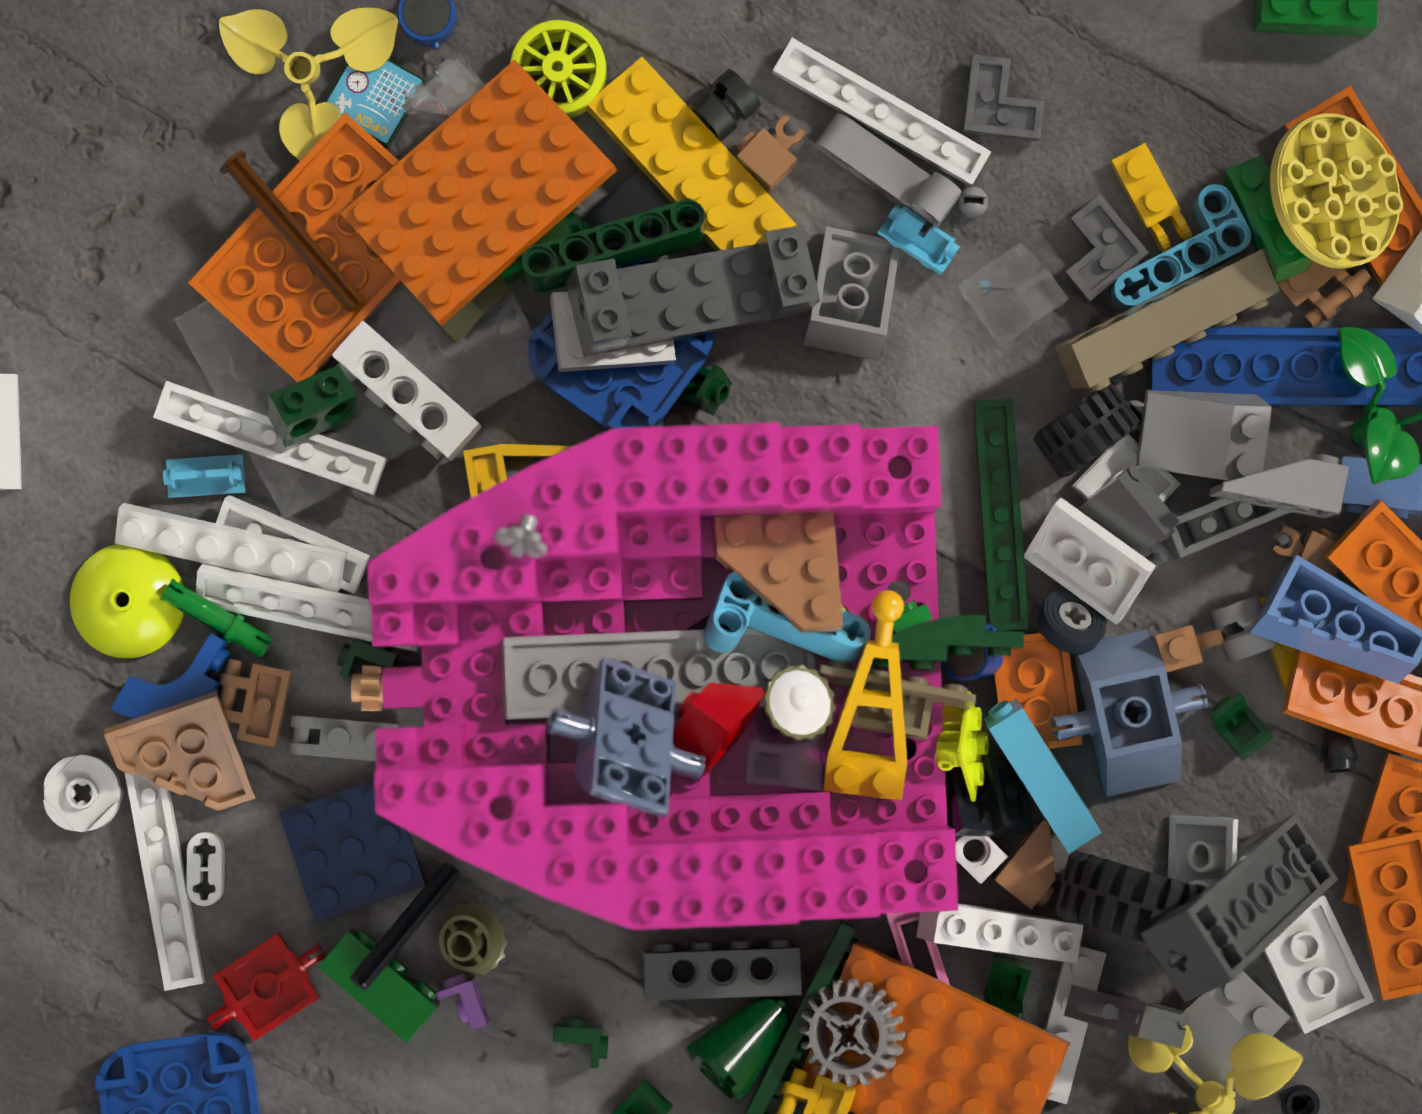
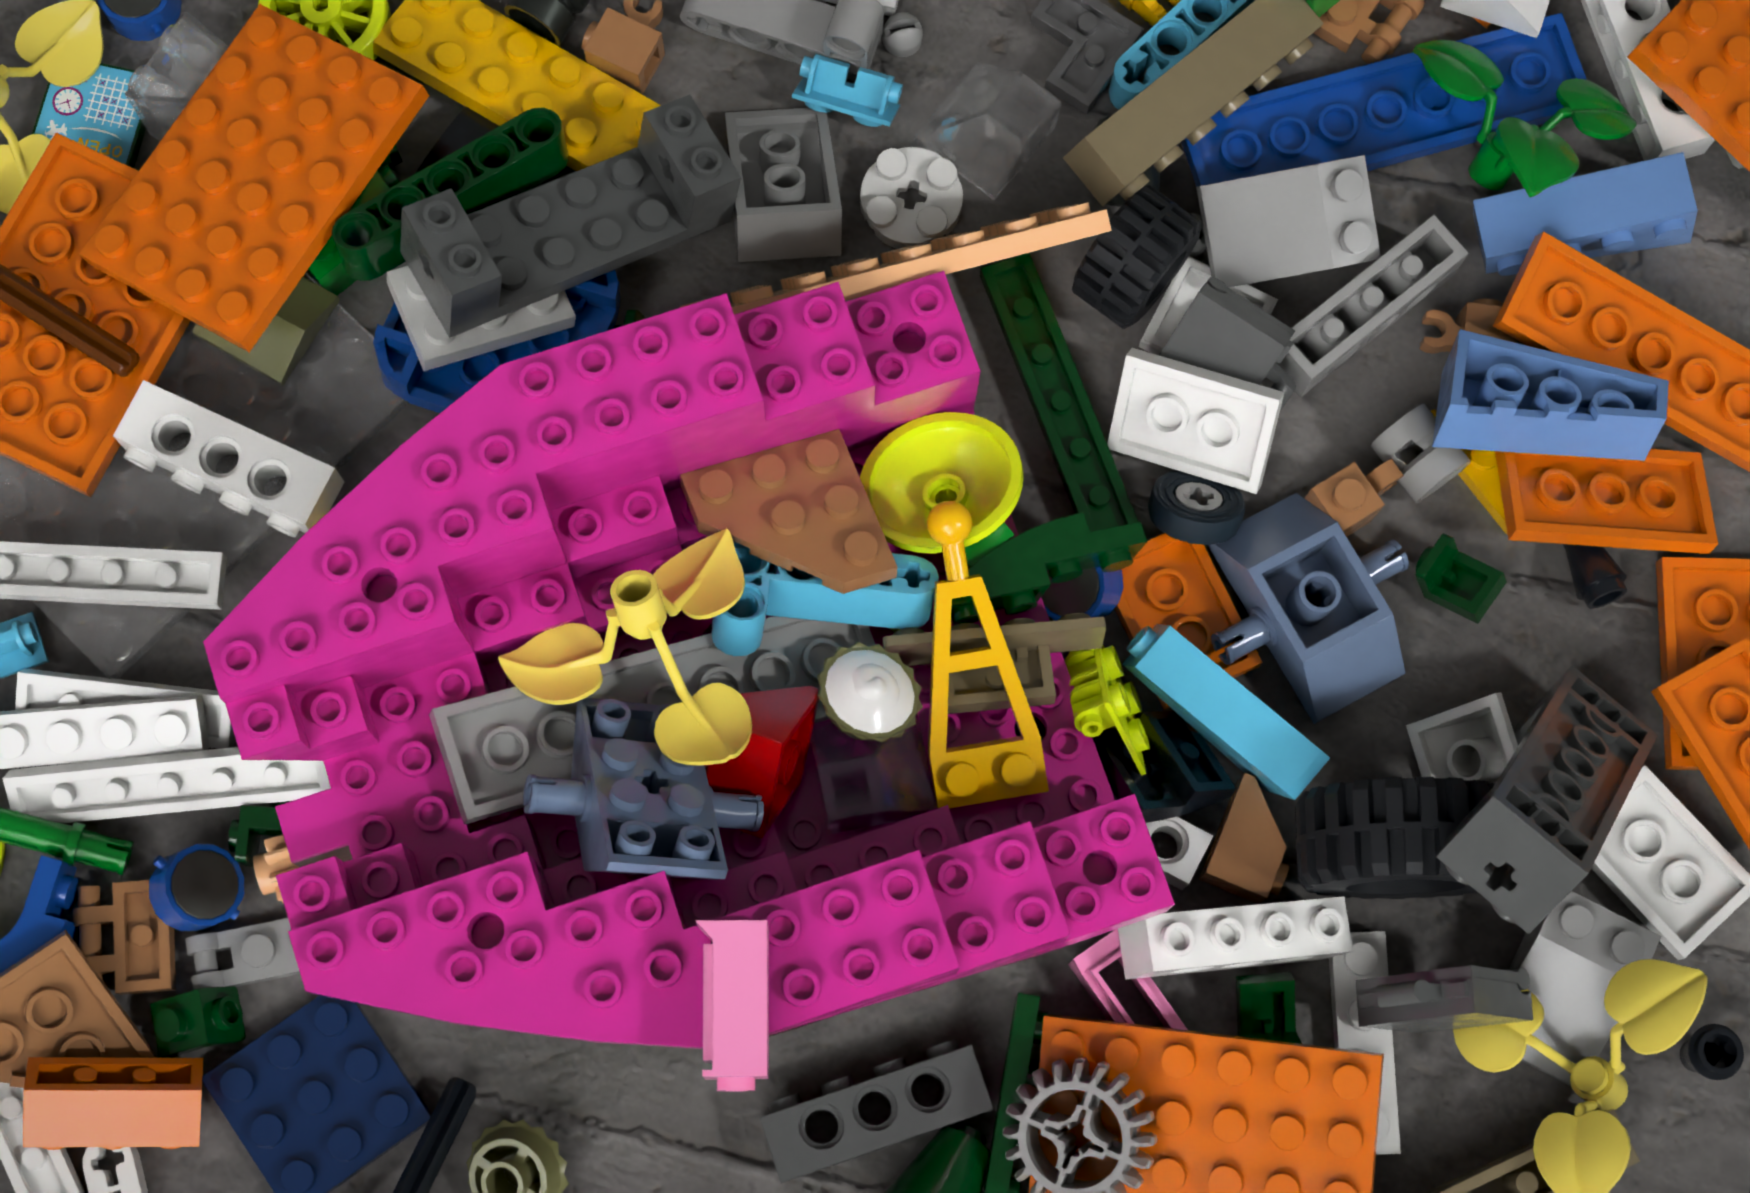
camera: 20 degrees left, 10 degrees down
(219, 815) = (112, 1102): none -> orange brick
(286, 773) = (197, 1020): none -> dark green bracket
(308, 684) = (196, 887): none -> piece
(312, 406) = (102, 509): dark green brick -> none
(522, 538) = (411, 541): light grey plant -> none
(648, 907) = (736, 1002): none -> bright pink window
(704, 596) = (700, 581): none -> light yellow plant
(891, 547) = (940, 461): none -> neon yellow dish
(902, 397) = (946, 254): none -> light nougat plate
(962, 322) = (916, 169): none -> white plate
(1305, 487) = (1431, 239): light grey slope -> none

